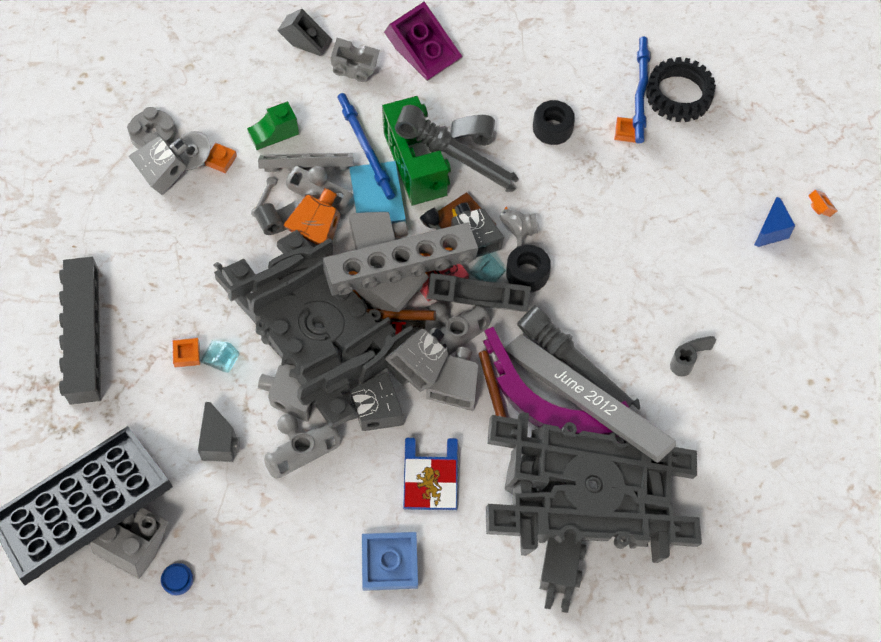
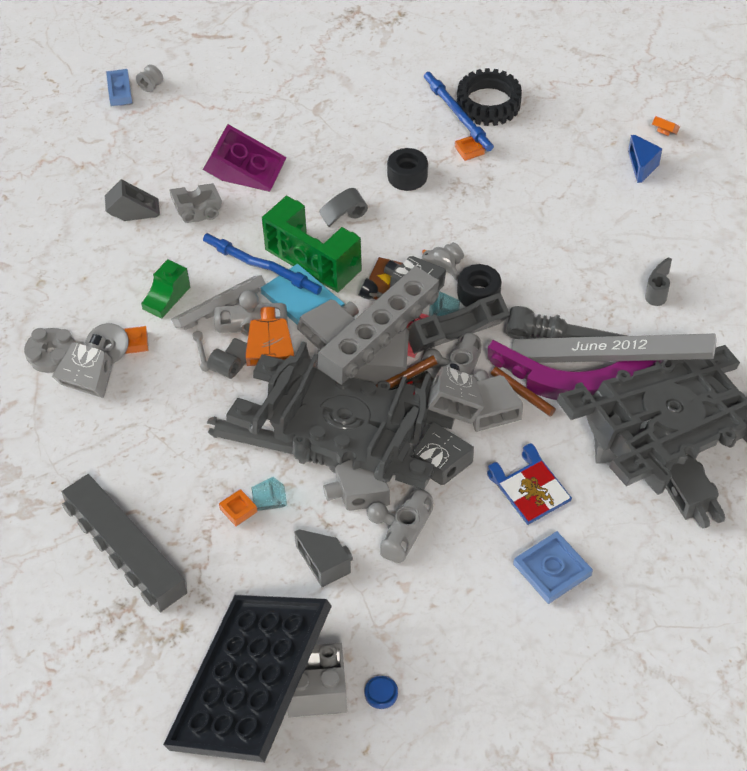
camera: 30 degrees left, 10 degrees down
(412, 124) = (331, 219): dark grey piece -> none

